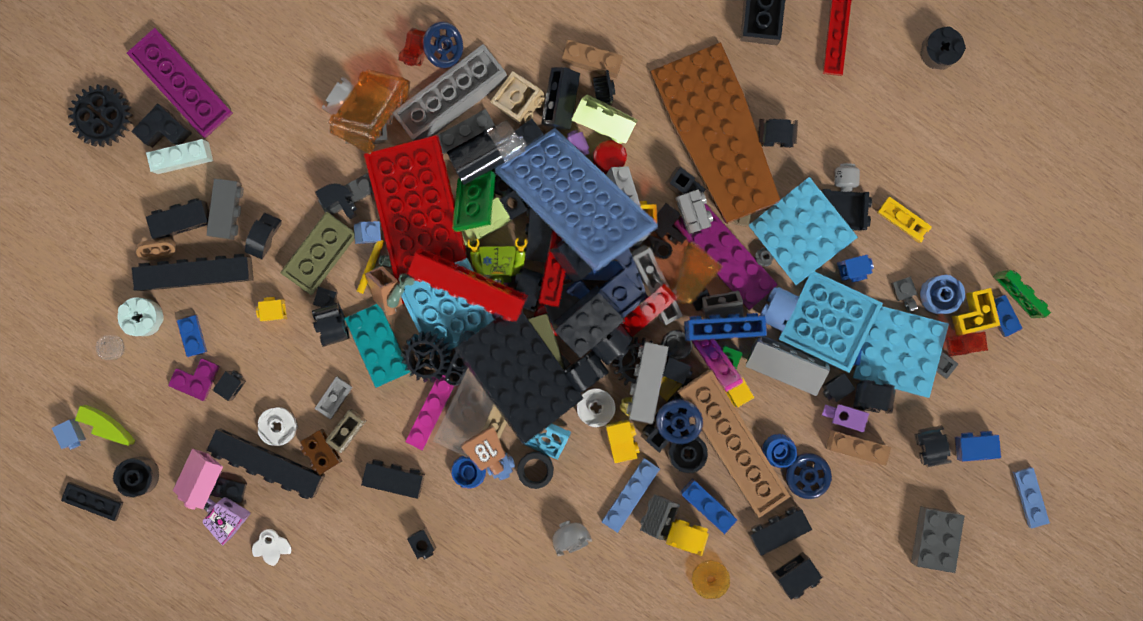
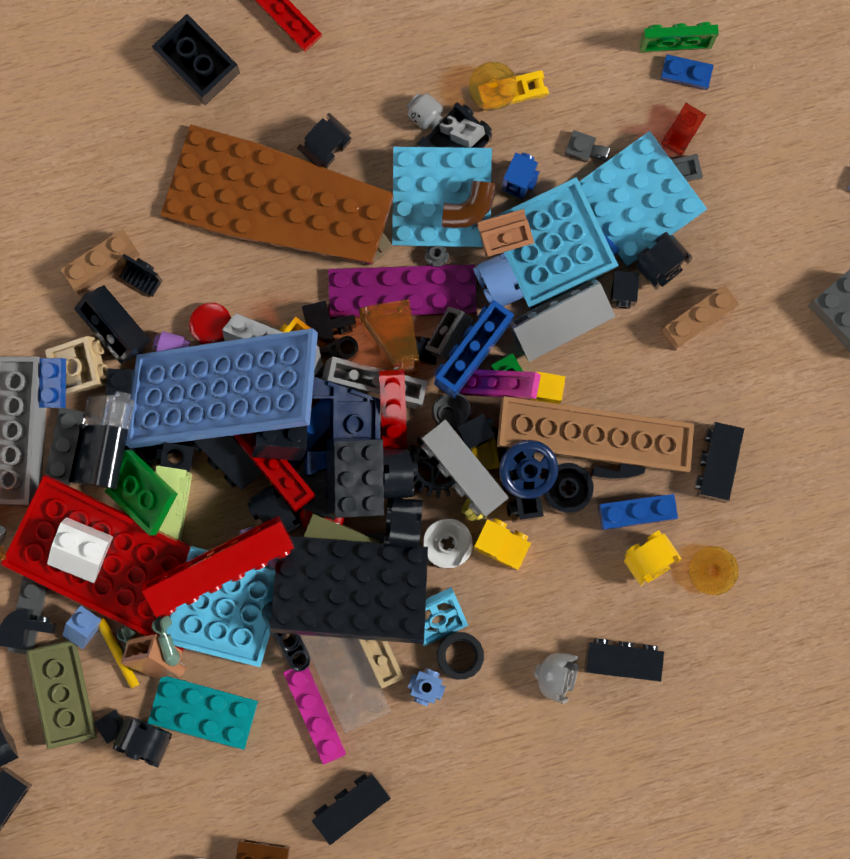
camera: 50 degrees left, 5 degrees down
(271, 309) = (77, 790): yellow brick -> none
(333, 397) = (218, 800): light grey plate -> none
(346, 430) = (262, 815): dark tan brick -> none
(410, 193) = (79, 549): none -> white slope
(422, 534) = (430, 827): black brick -> none
(439, 368) = (266, 668): black gear -> none
(467, 473) = (406, 725): blue piece -> none
(485, 450) = (398, 686): nougat torso -> none
(496, 92) = (52, 383): none -> blue plate
(498, 262) = (221, 519): lime torso -> none
(604, 119) = (169, 298): yellowish green wedge -> none
(613, 570) = (624, 660): none -> black brick
(630, 495) = (564, 581): medium blue plate -> none
(659, 517) = (608, 570): dark grey brick -> none
(682, 182) = (297, 274): black brick -> none
(693, 211) = (333, 285): light grey brick -> none
(725, 477) = (624, 472): none -> black slope
(779, 450) = (640, 396): blue piece -> none
(797, 576) = (778, 480): black brick -> none
(806, 492) = (679, 407): dark blue plate -> none
(810, 257) = (471, 210): none -> reddish brown cylinder
(812, 288) = (505, 233): none -> nougat plate
(852, 211) = (463, 133): none -> light grey plate
(855, 418) = (668, 295): medium lavender torso -> none
(887, 208) = (492, 98): none -> clear yellow plate
(931, 291) = (605, 105): medium blue brick -> none
(933, 446) = (758, 243): black brick -> none
(977, 447) = (794, 201): blue brick -> none
(981, 315) = (667, 93): yellow brick -> none

